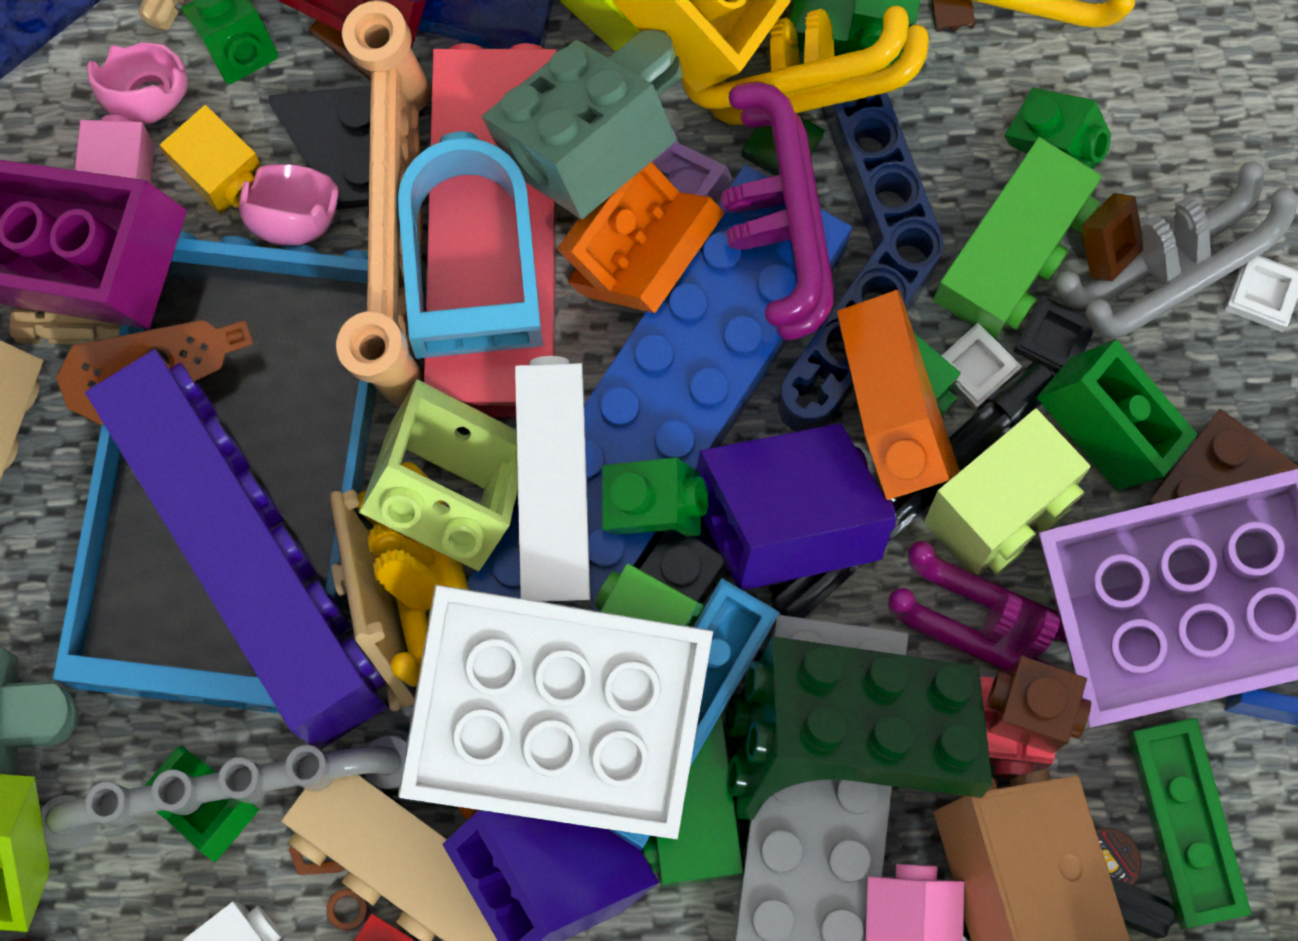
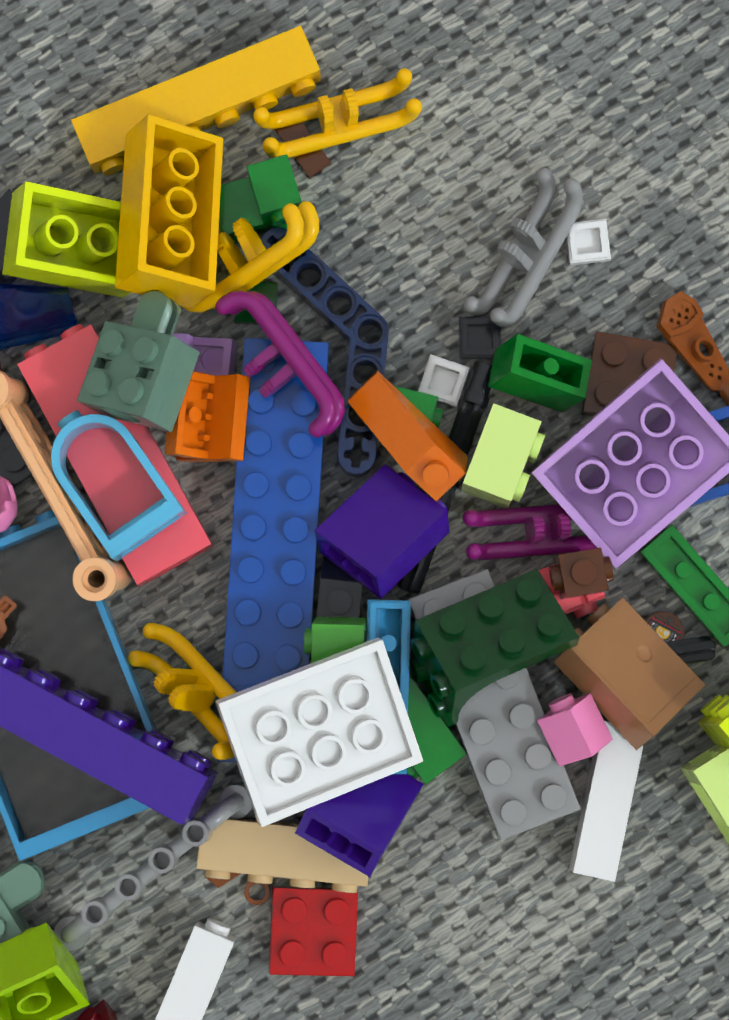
camera: 30 degrees left, 10 degrees up
(214, 823) = (157, 892): green bracket -> none
(371, 606) = (180, 724): tan door -> none
(408, 500) = (192, 593): yellowish green window -> none
(552, 482) = (243, 599): white brick -> none
(653, 497) = (303, 573): green bracket -> none
(1019, 240) = (429, 290): bright green brick -> none
(1065, 122) = (418, 206): green bracket -> none
(1112, 236) = (482, 260): reddish brown plate -> none

